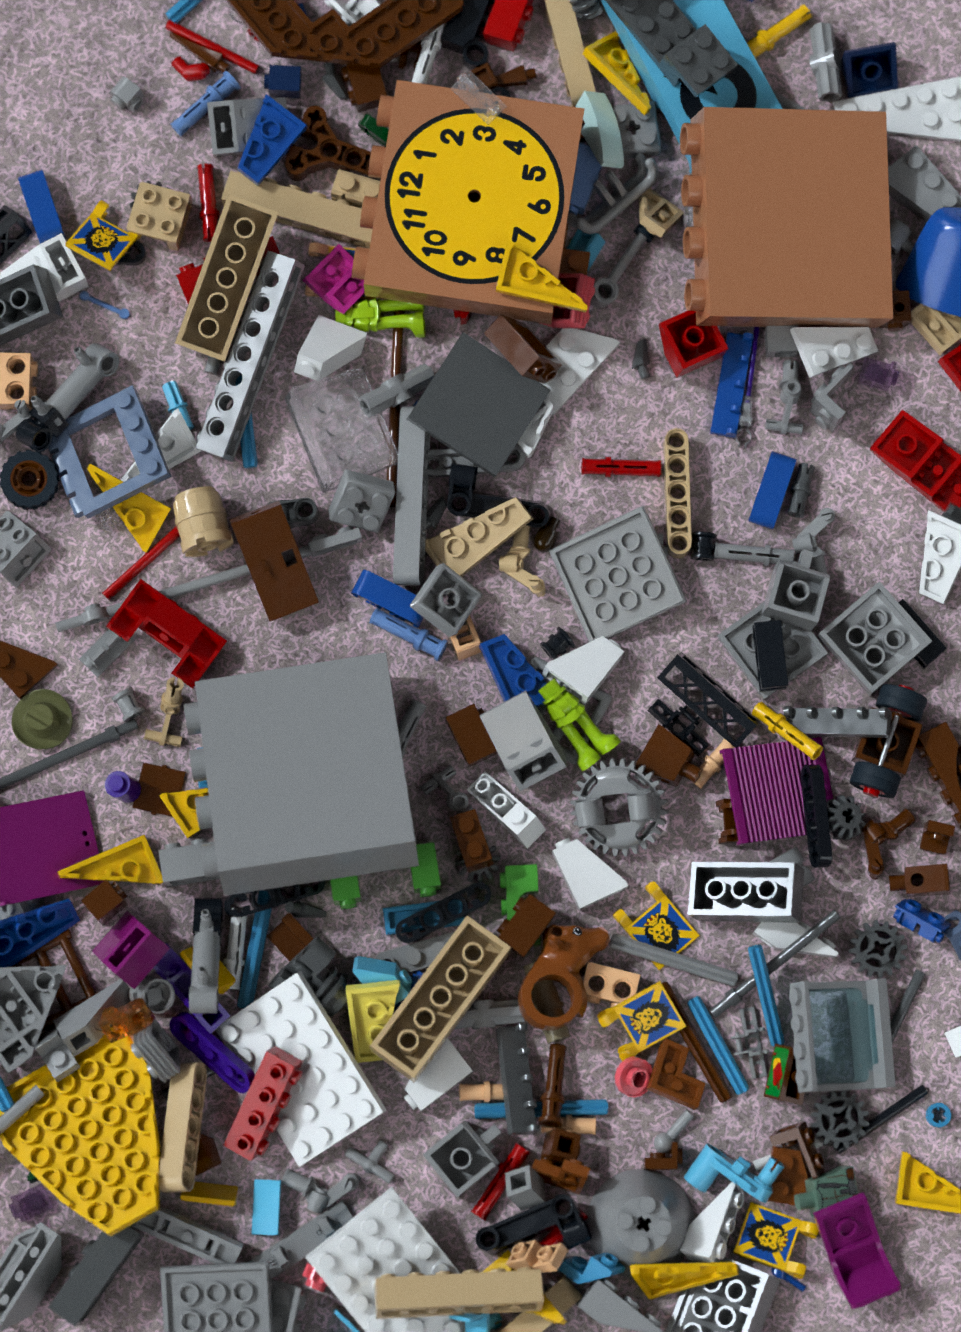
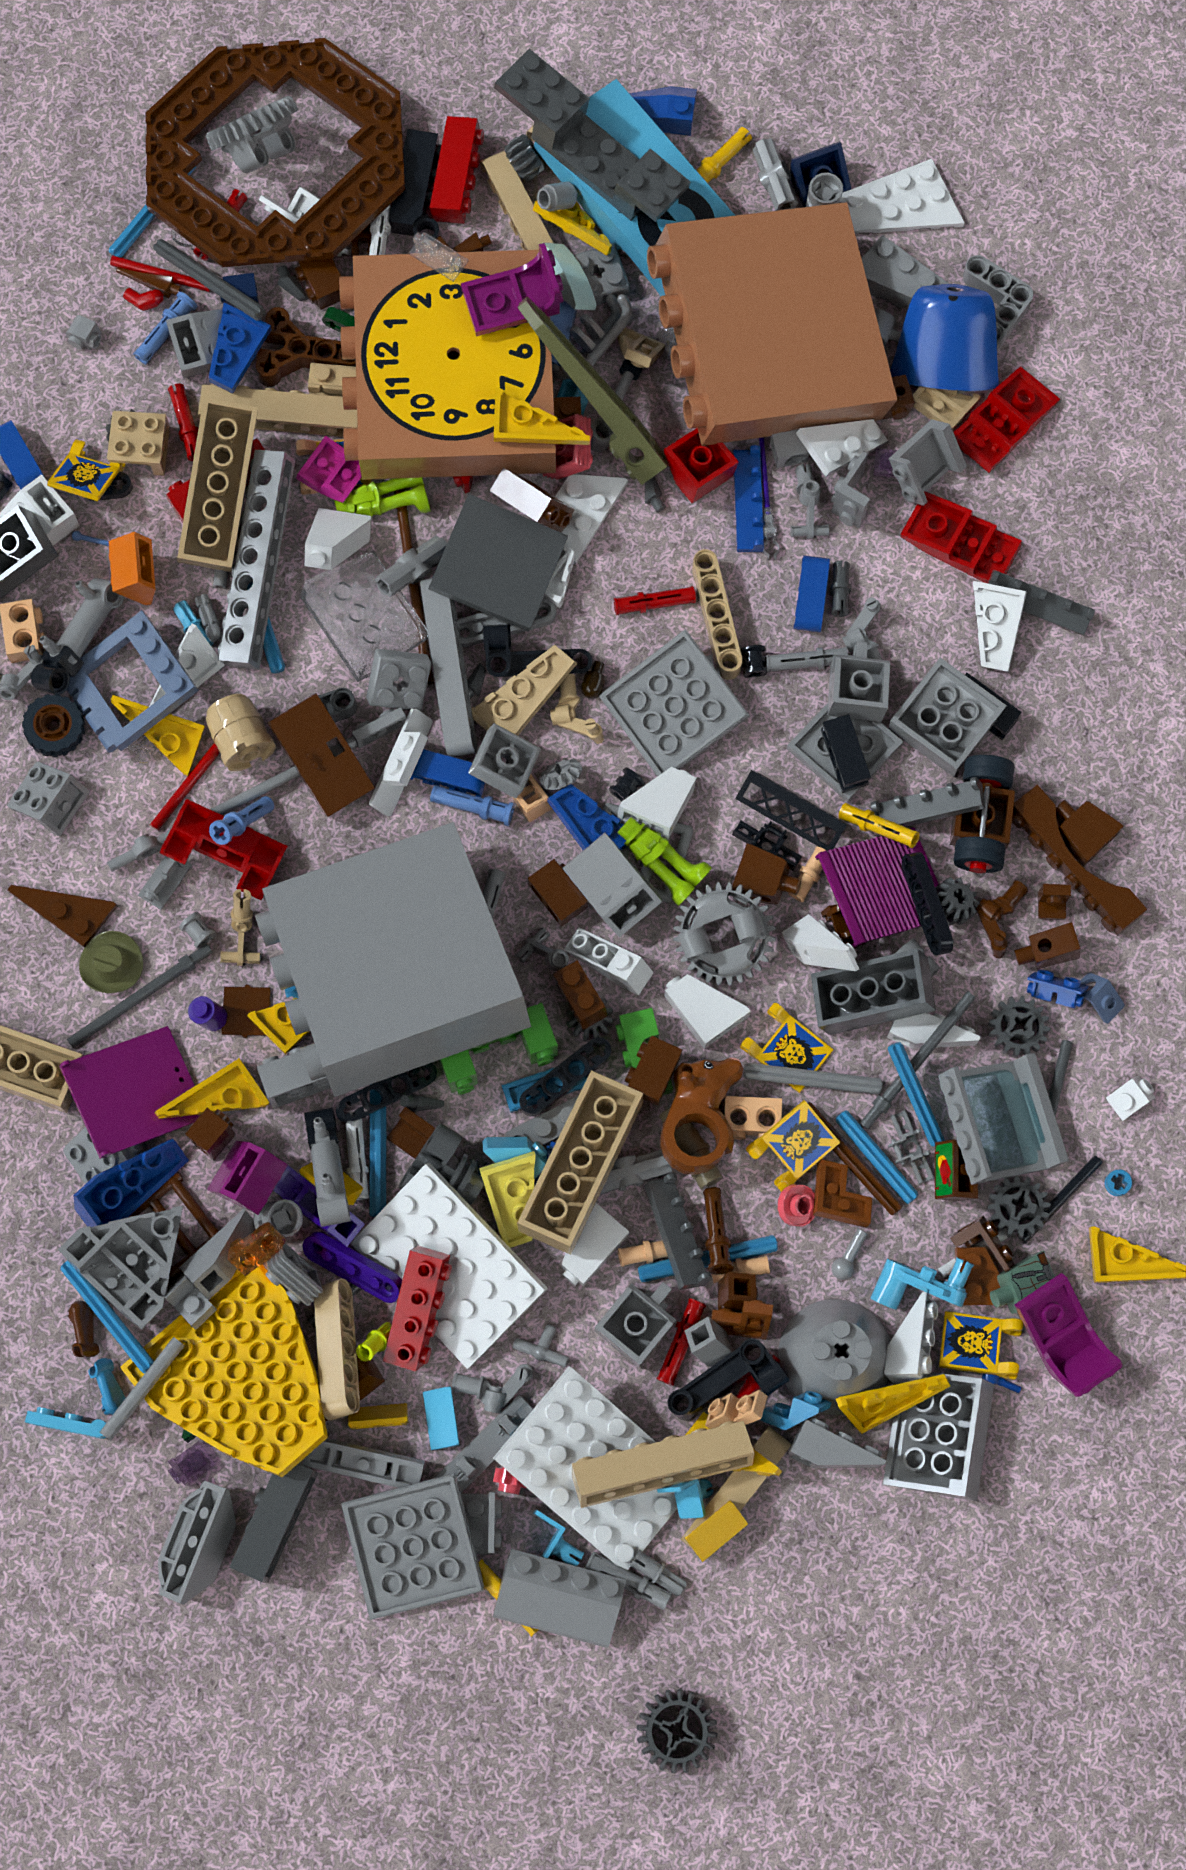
camera: 10 degrees left, 5 degrees down
(131, 342) = (132, 567): none -> orange slope
(194, 402) = (208, 618): none -> light grey axle
(207, 598) = (235, 823): none -> medium blue pin
(219, 1127) = (375, 1342): none -> neon yellow axle
(256, 66) = (209, 279): none -> dark grey axle
(350, 579) = (401, 762): none -> white bracket
(506, 621) = (560, 774): none -> light grey gear
(542, 151) = (496, 297): none -> magenta bracket
(607, 47) = (557, 196): none -> light grey brick
(626, 293) = (627, 428): none -> olive piece
(659, 1161) = (843, 1288): reddish brown bracket -> none
(702, 836) = (817, 946): none -> white slope
(868, 93) = (824, 190): none -> light grey wheel
(908, 381) = (926, 460): none -> light grey panel

